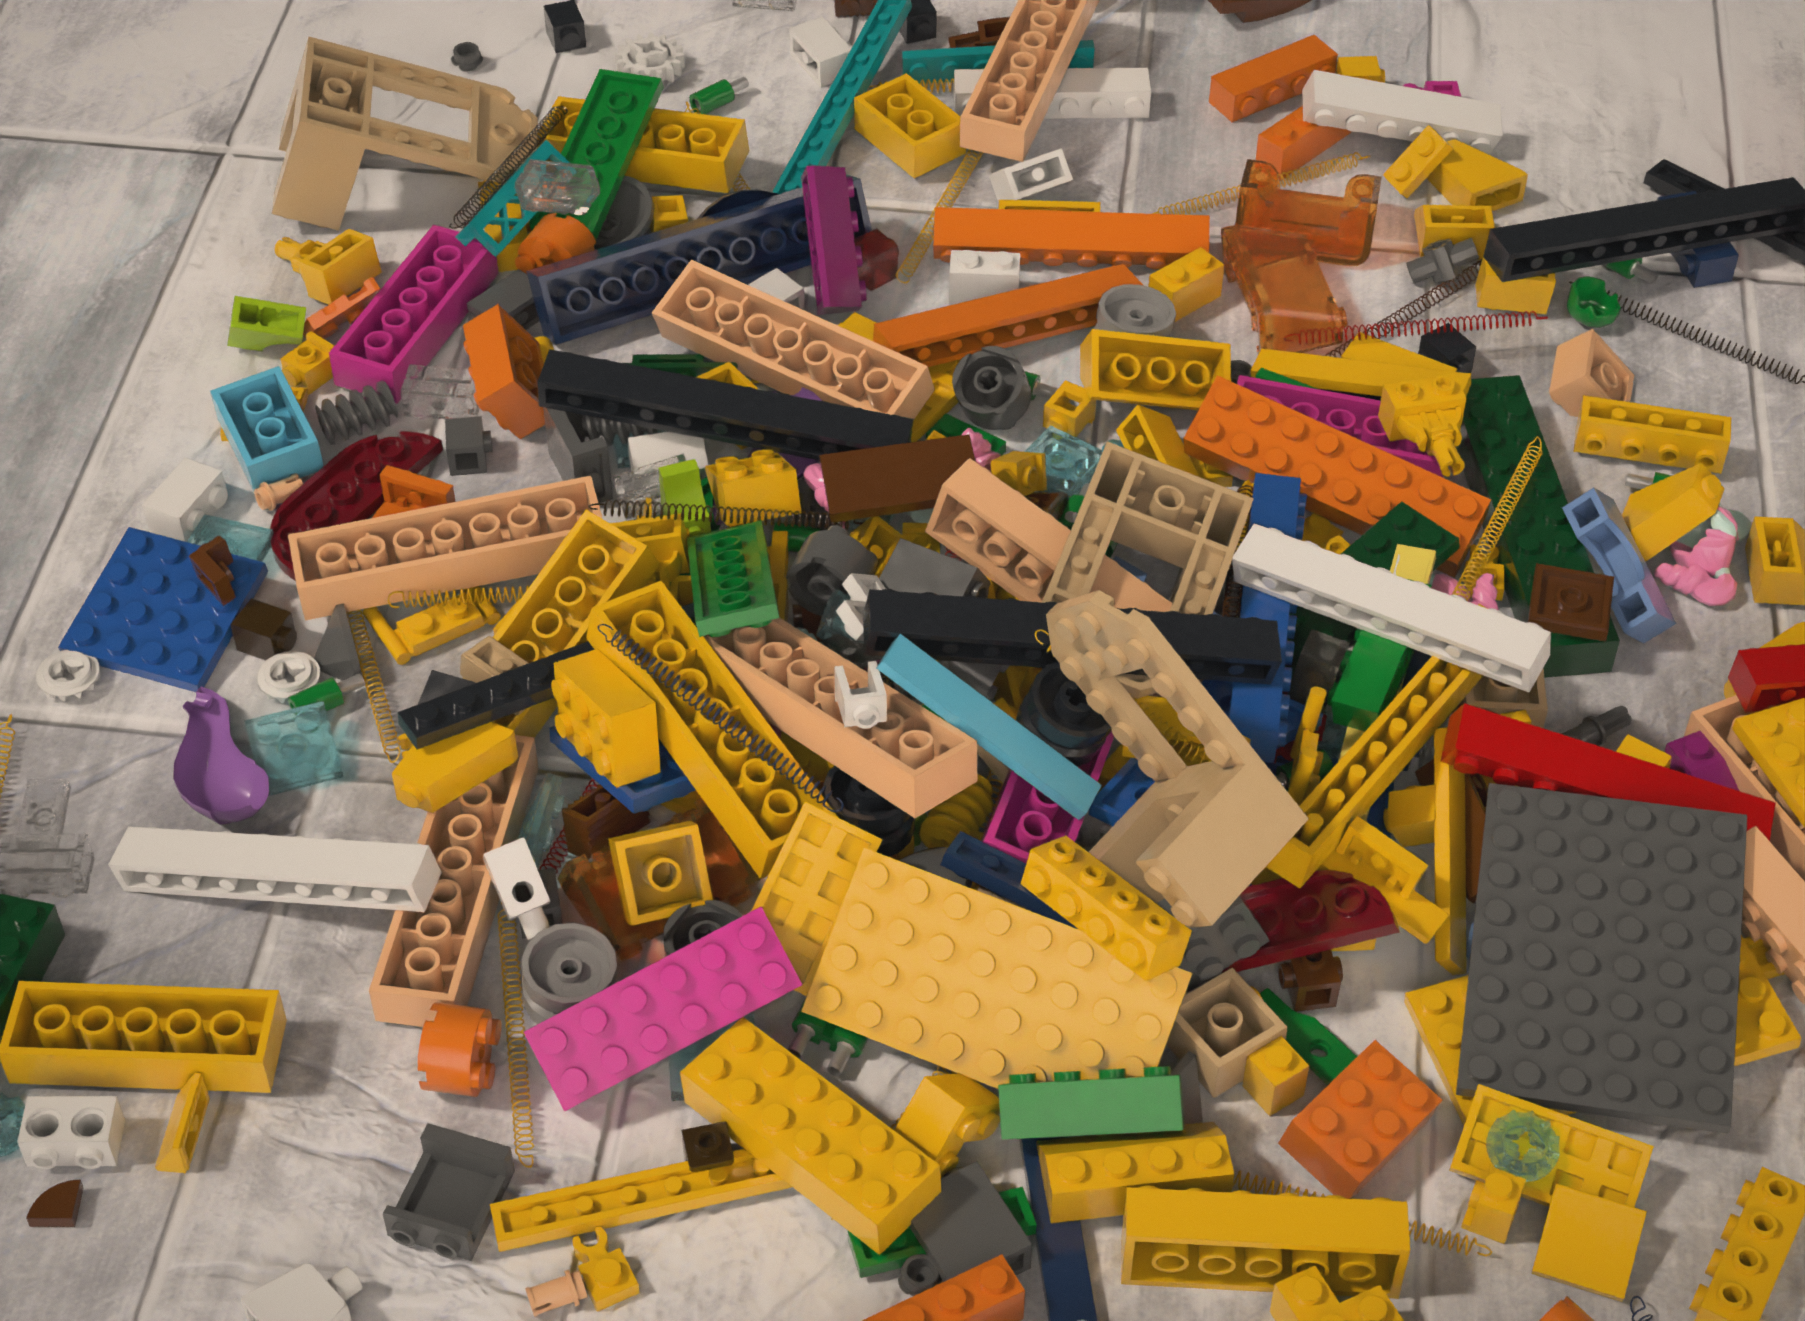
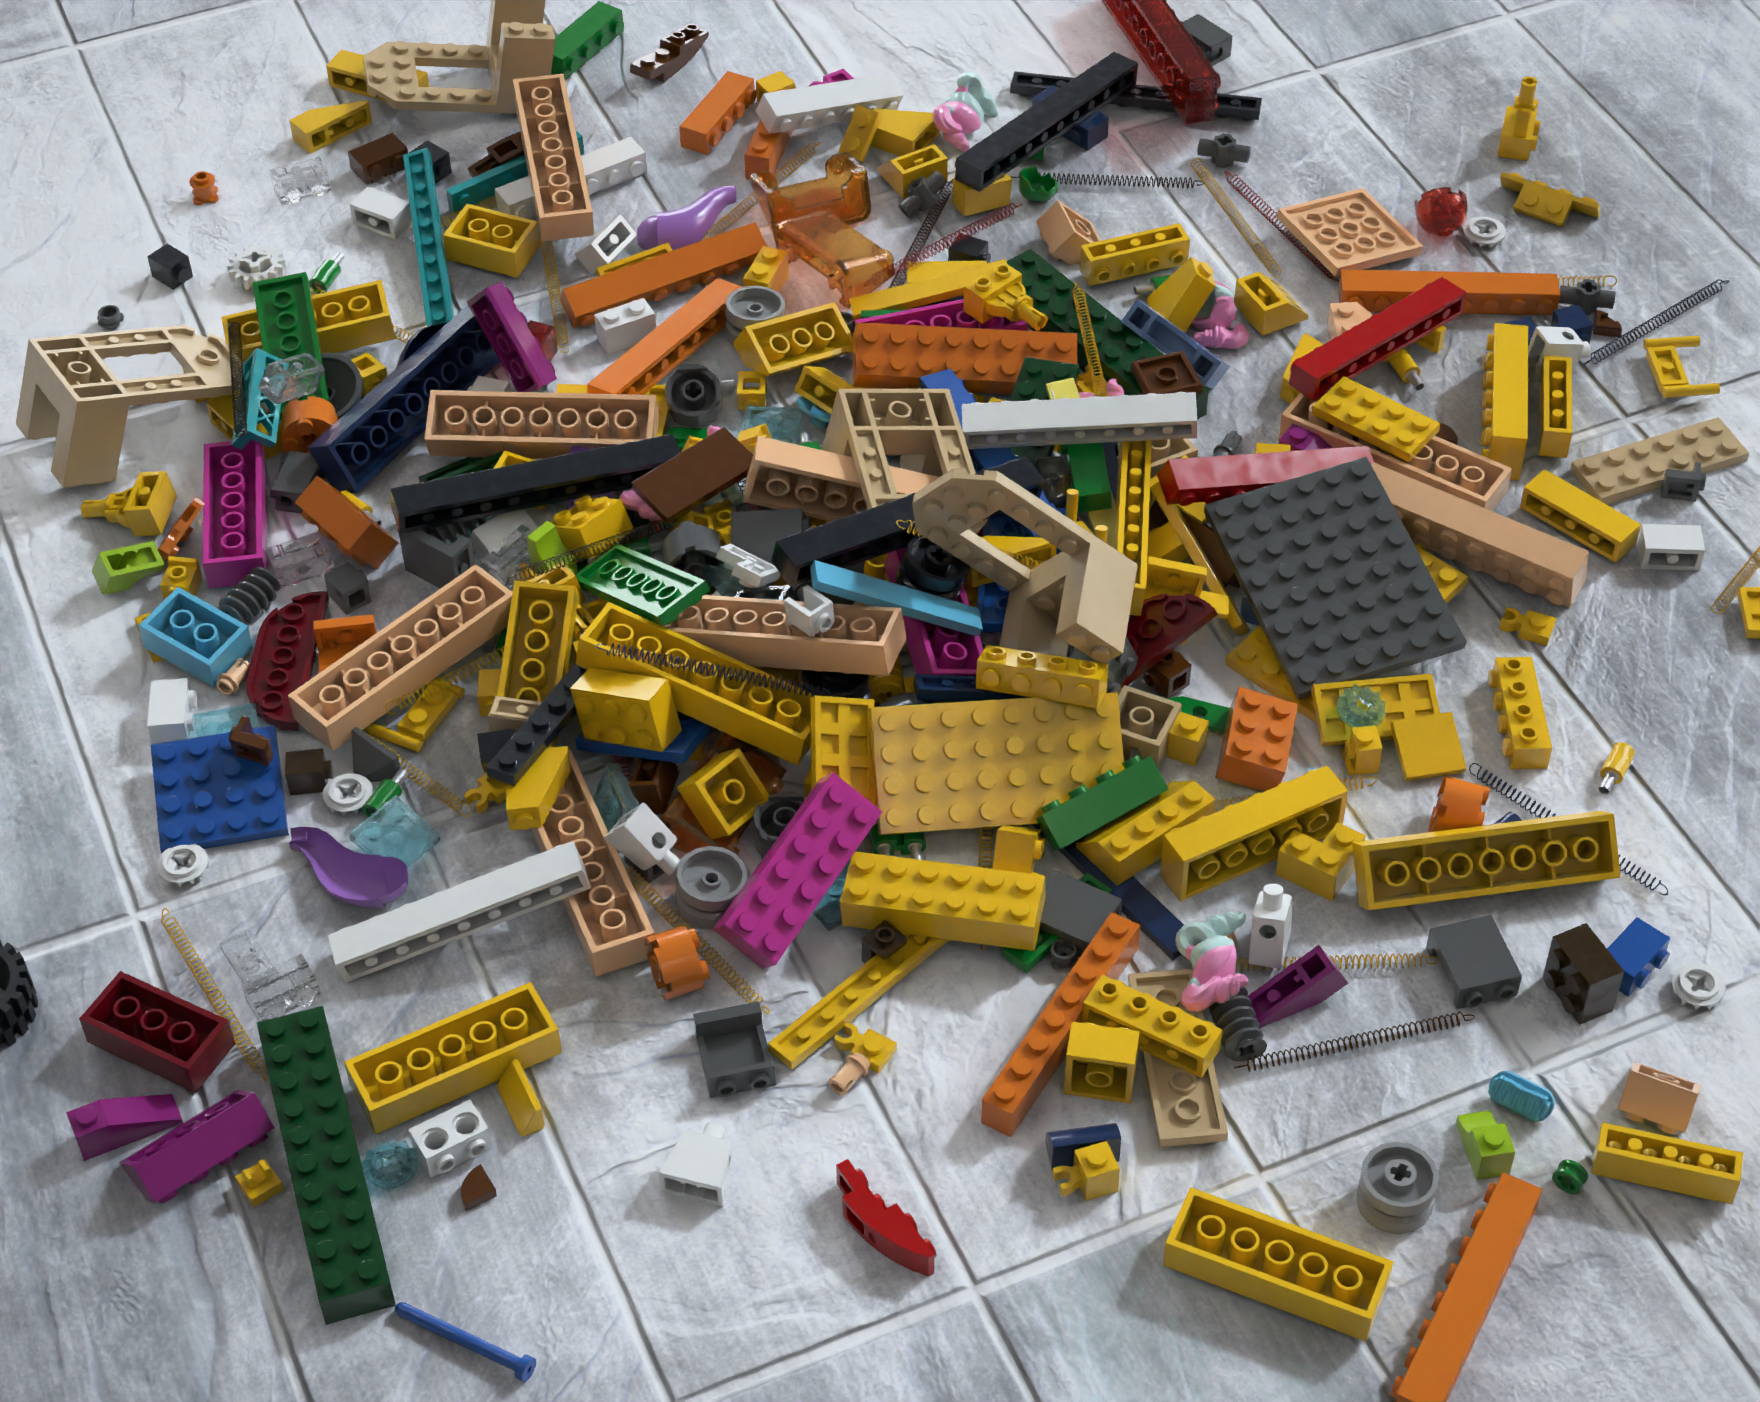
camera: 30 degrees left, 0 degrees up
(1144, 191) = (685, 224): none -> medium lavender animal
(1563, 180) = (964, 110): none -> hair

